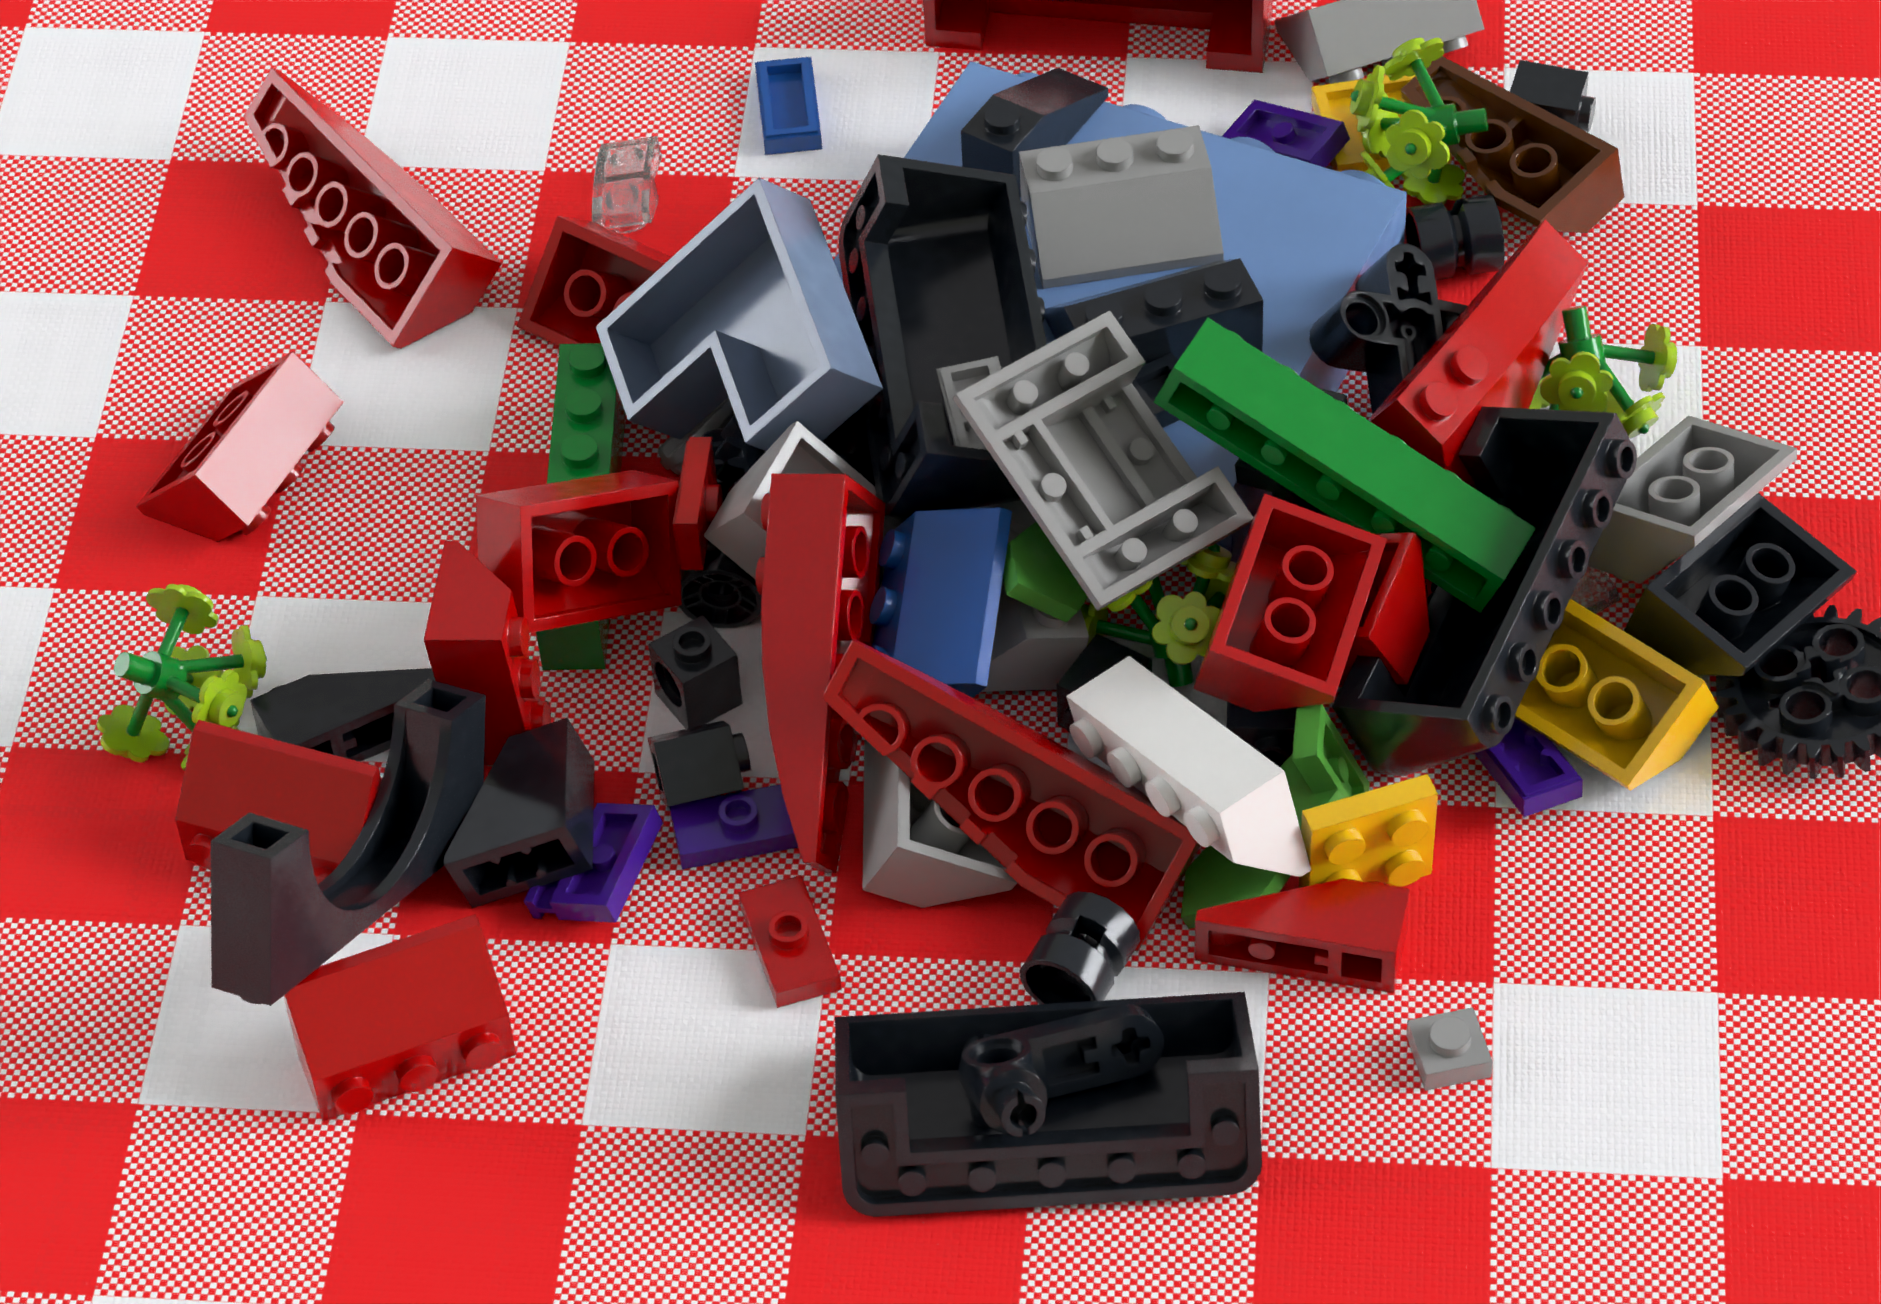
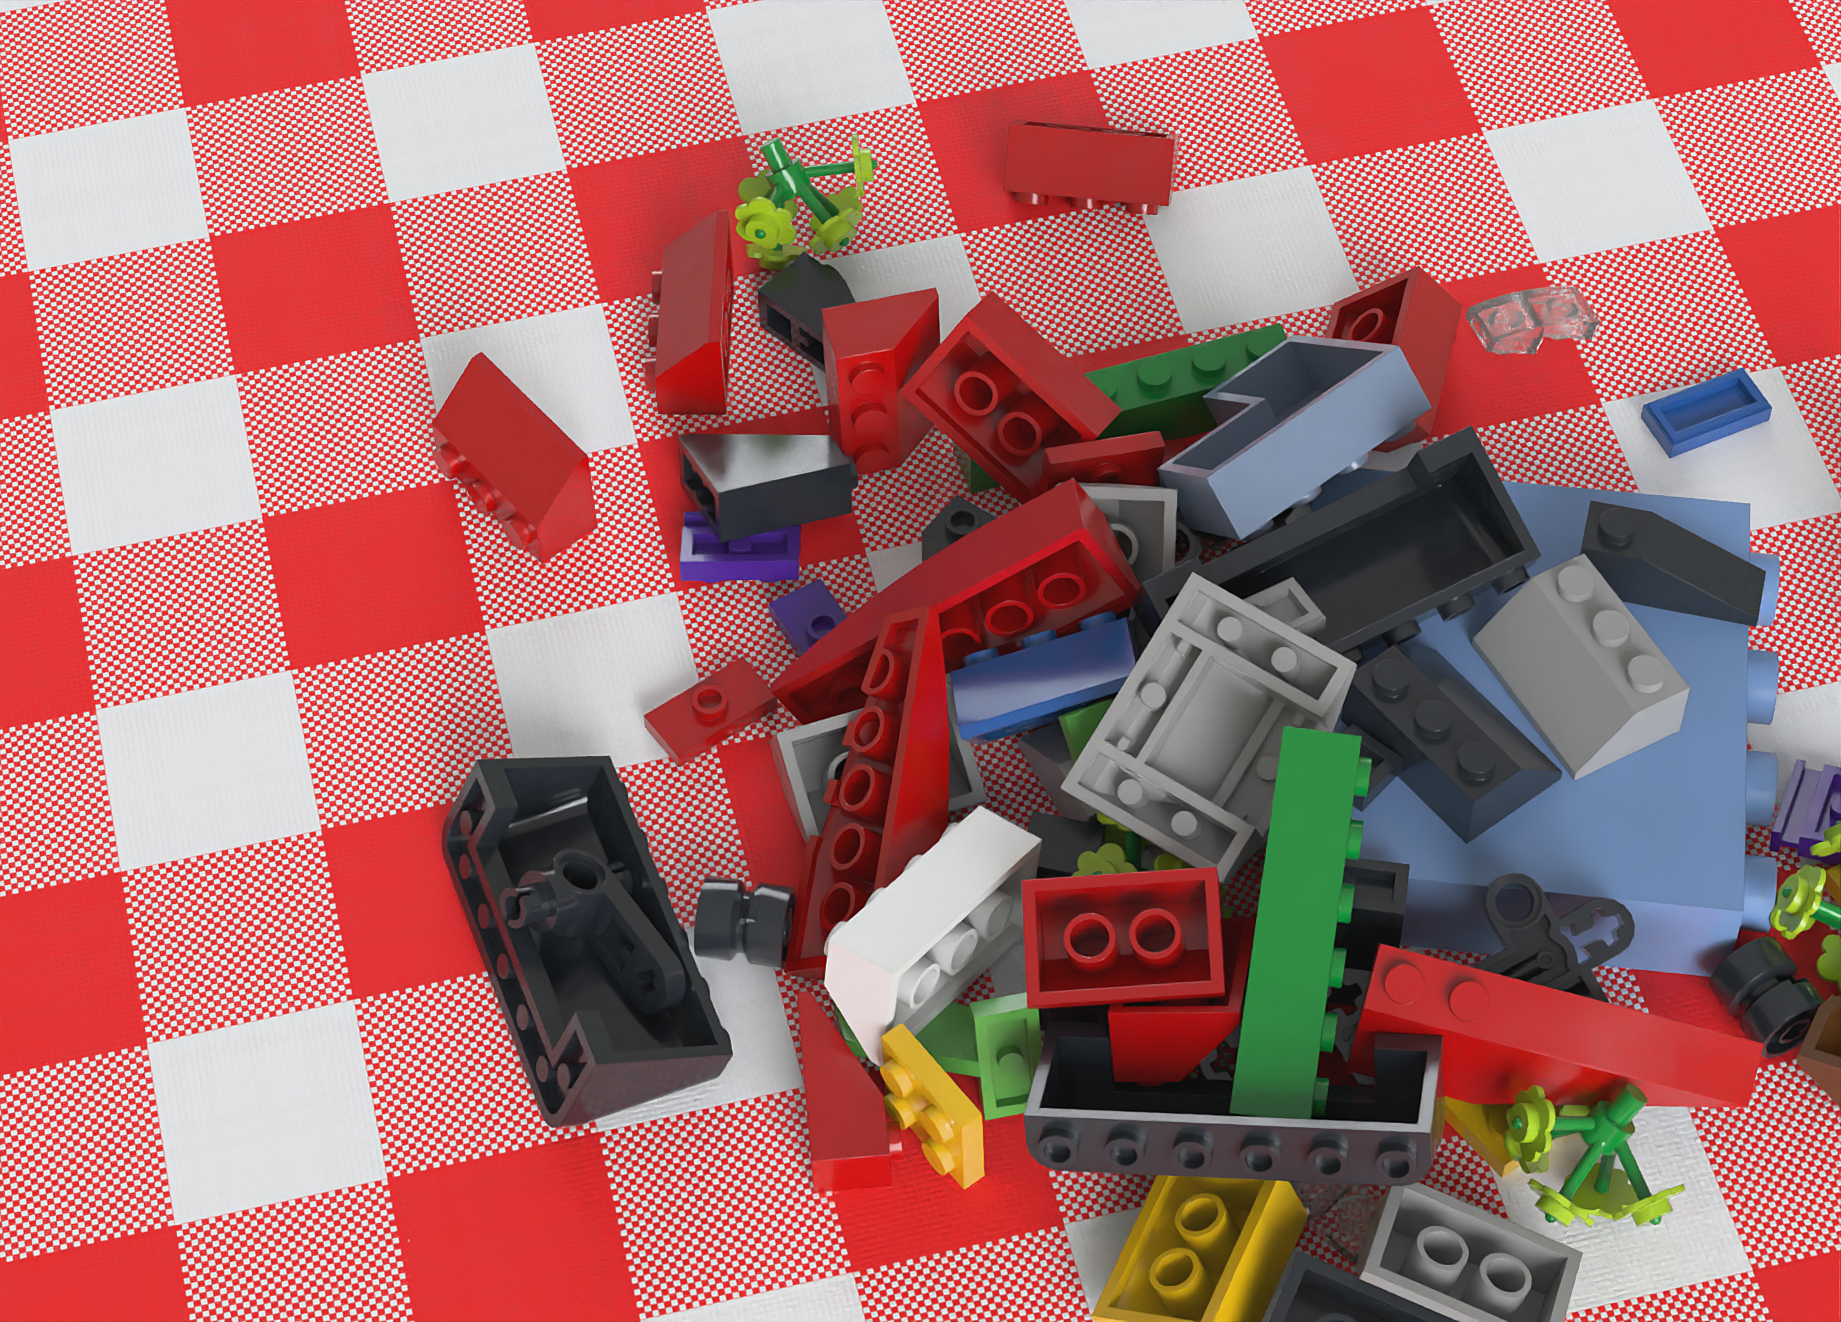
camera: 70 degrees right, 5 degrees up
(266, 905) = (502, 323): black arch -> none
(379, 229) = (1377, 190): red wedge -> none
(699, 762) = (852, 570): black brick -> none
(1449, 1048) = (754, 1249): light grey plate -> none
(1531, 770) = (1096, 1230): dark purple plate -> none

